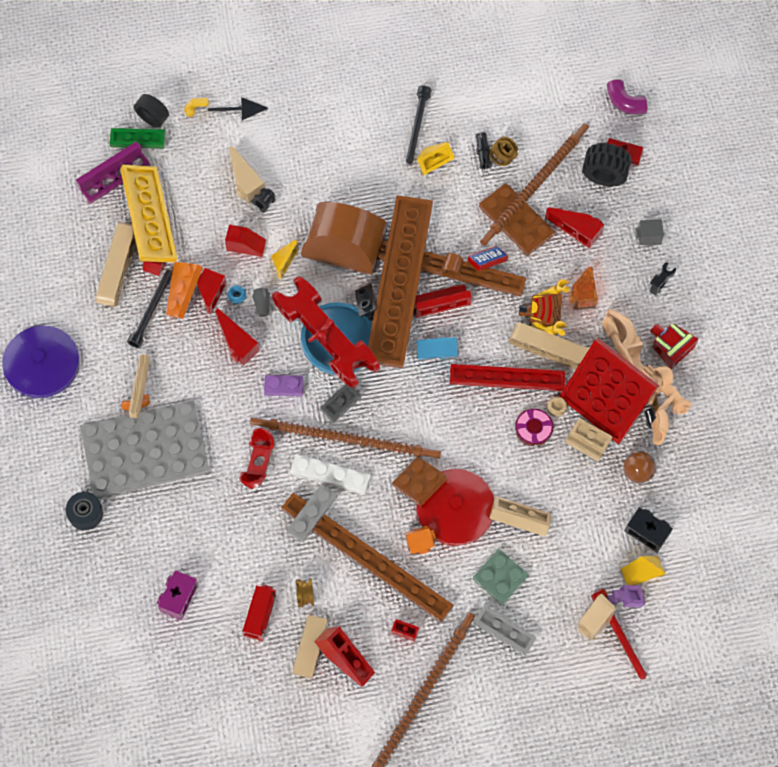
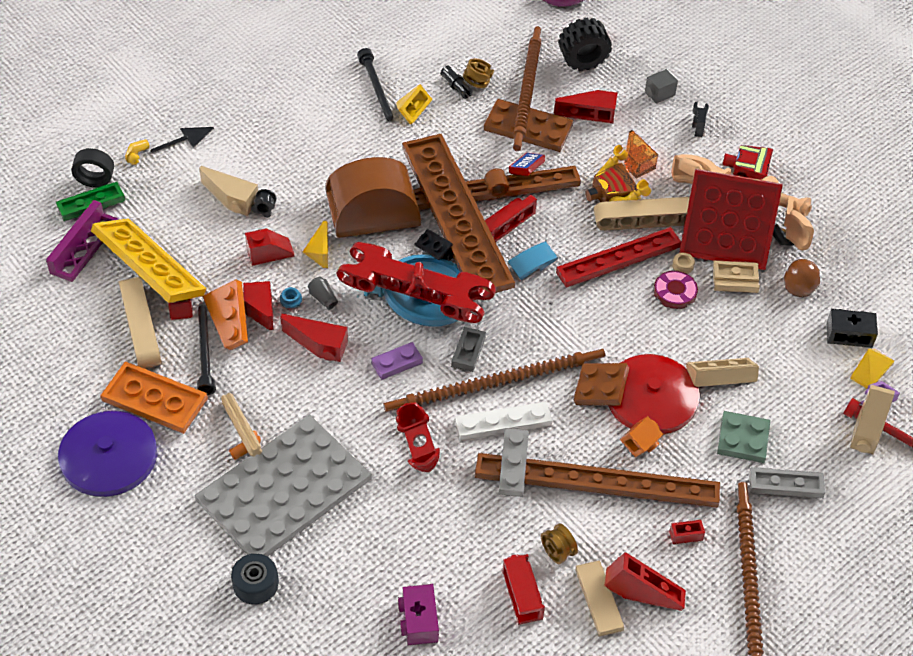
camera: 30 degrees left, 15 degrees down
(94, 332) = (154, 397): none -> orange plate

